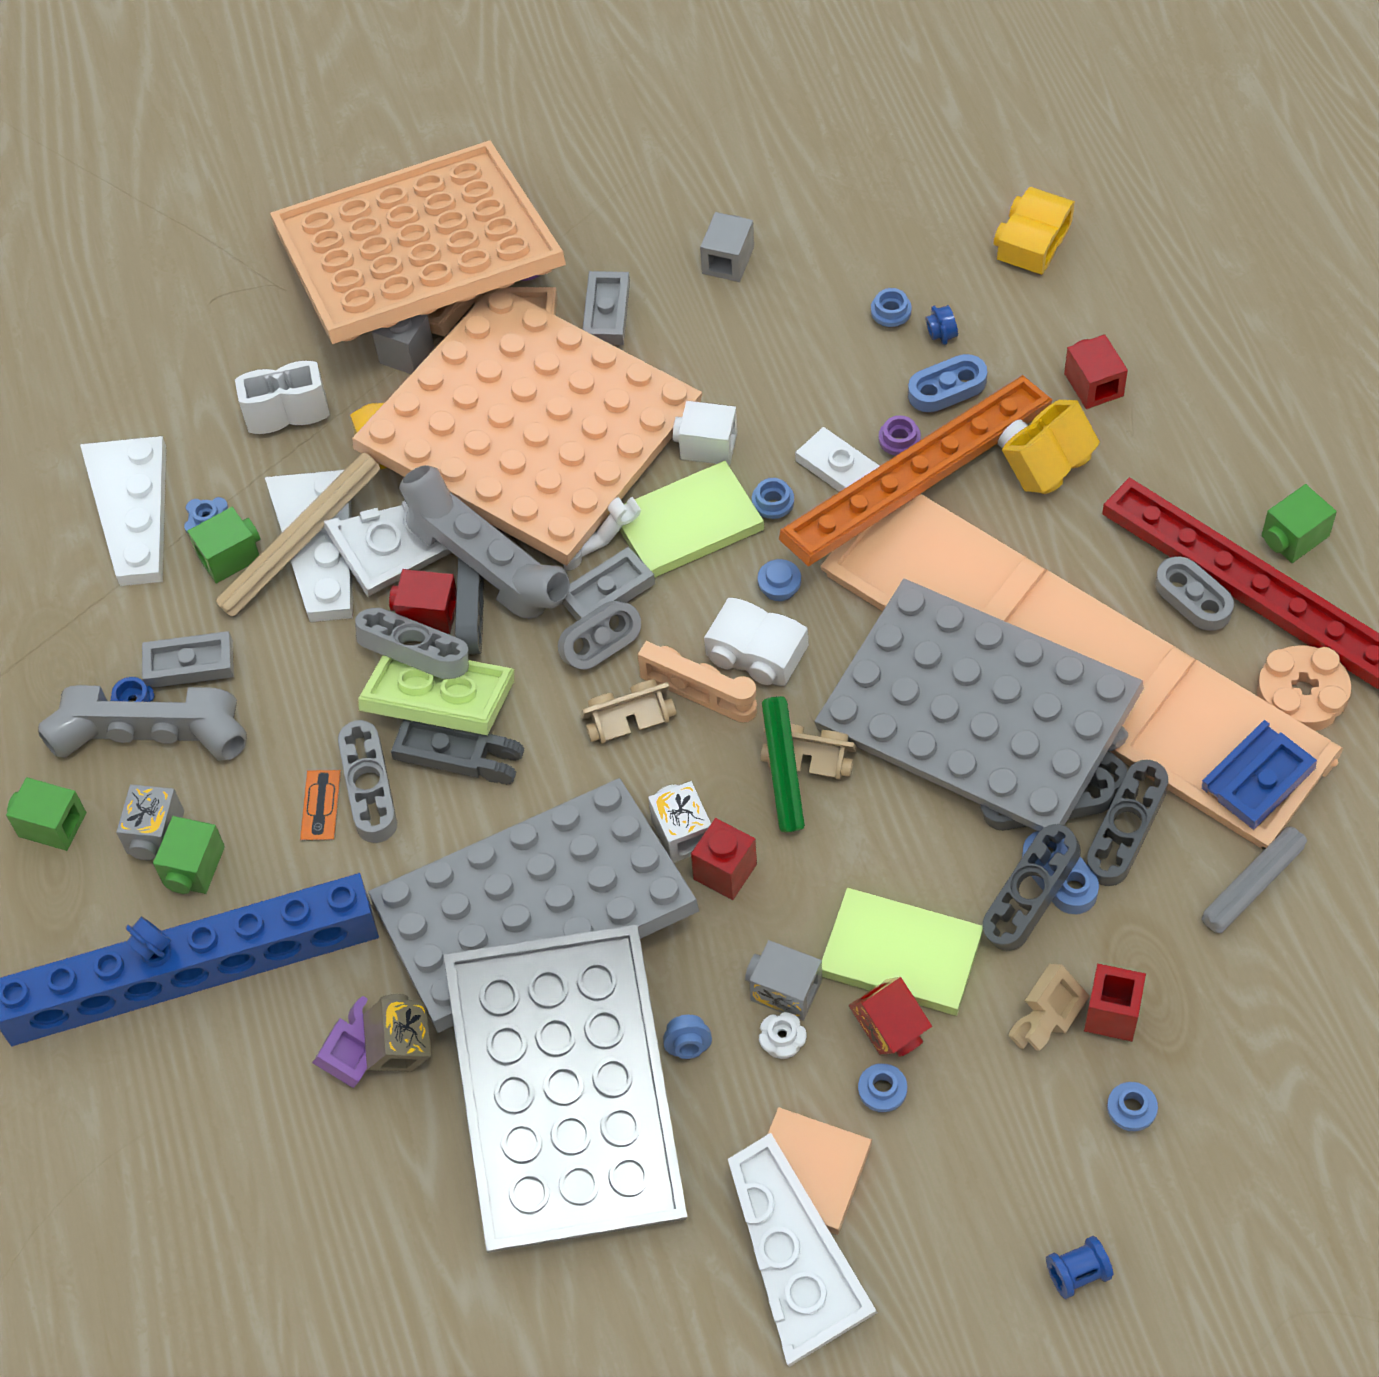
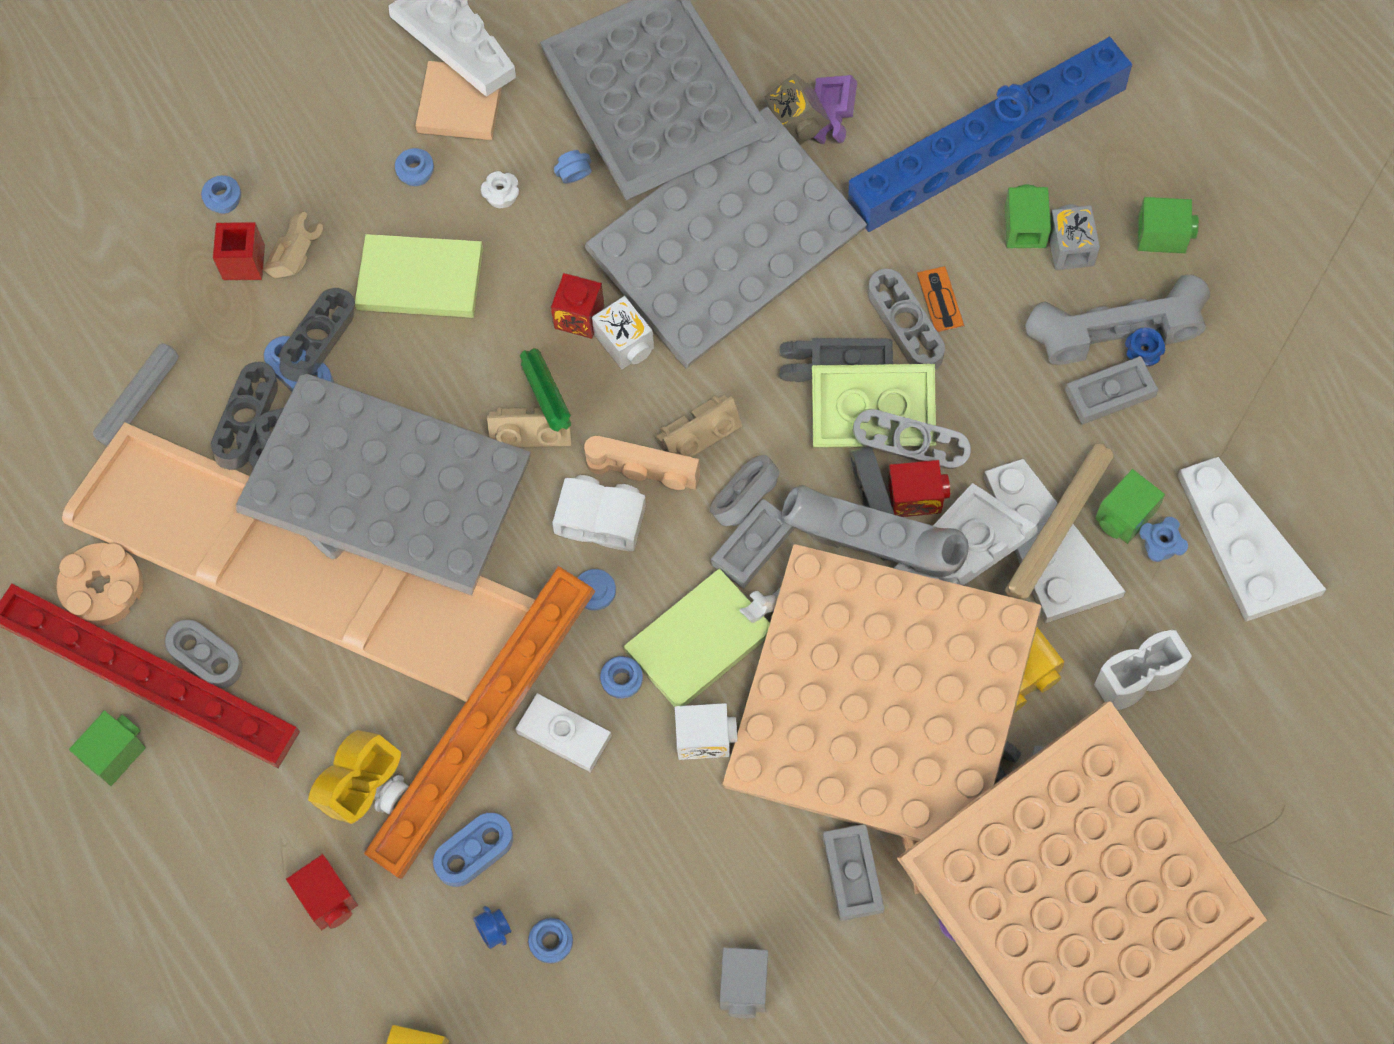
camera: 165 degrees right, 10 degrees up
(784, 979) = (506, 223): light grey brick -> none
(891, 1017) = (415, 206): red brick -> none
(895, 428) = (507, 765): medium lavender plate -> none
(1079, 1267) = (248, 72): blue bush -> none
(1259, 774) = (133, 470): blue plate -> none

